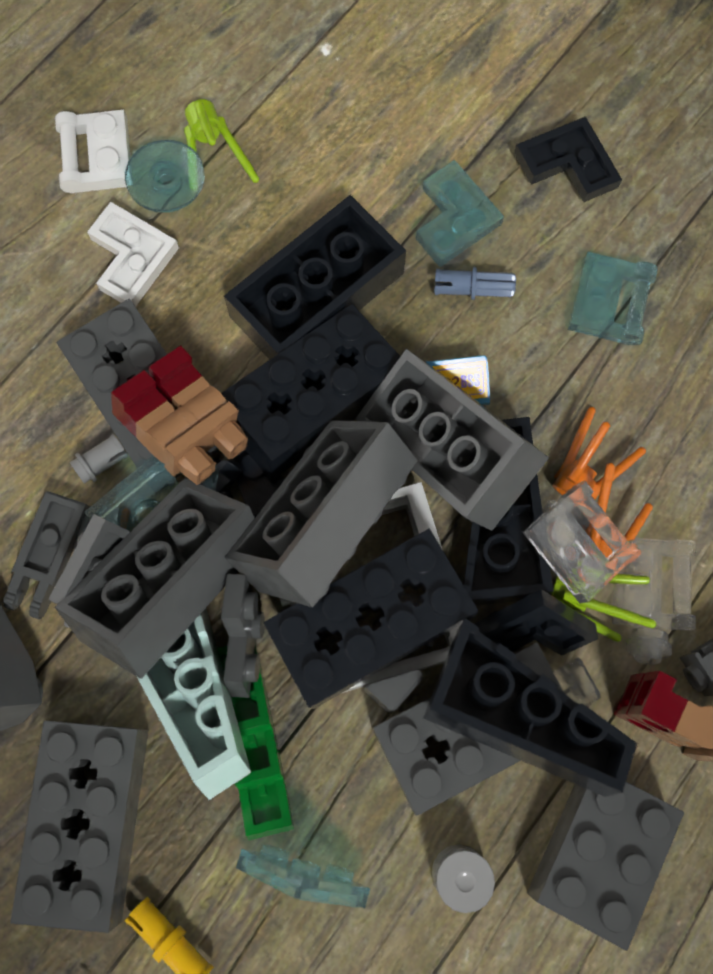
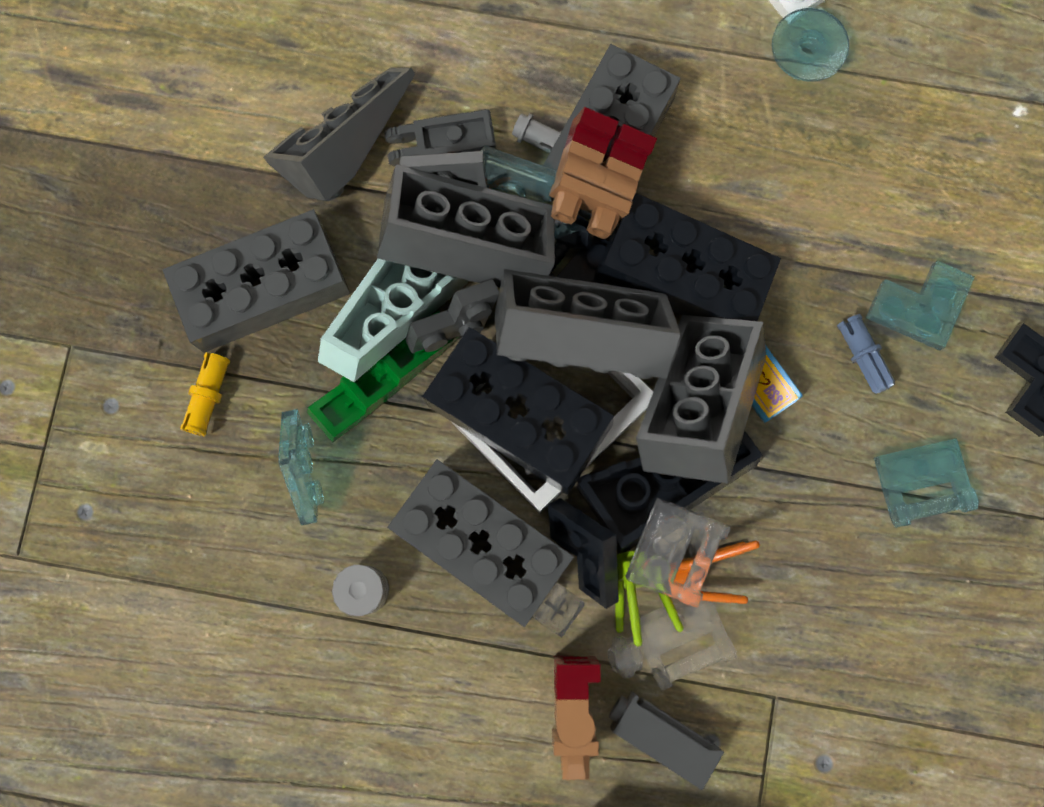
camera: 65 degrees right, 5 degrees up
(139, 249) = (731, 65): white plate -> none
(205, 127) = (876, 51): lime plant -> none
(316, 276) = (806, 208): black brick -> none
(392, 691) = (473, 461): dark grey slope -> none
(525, 715) = (504, 555): black wedge -> none
(575, 471) = (741, 530): orange plant -> none
(606, 860) = (435, 696): dark grey brick -> none

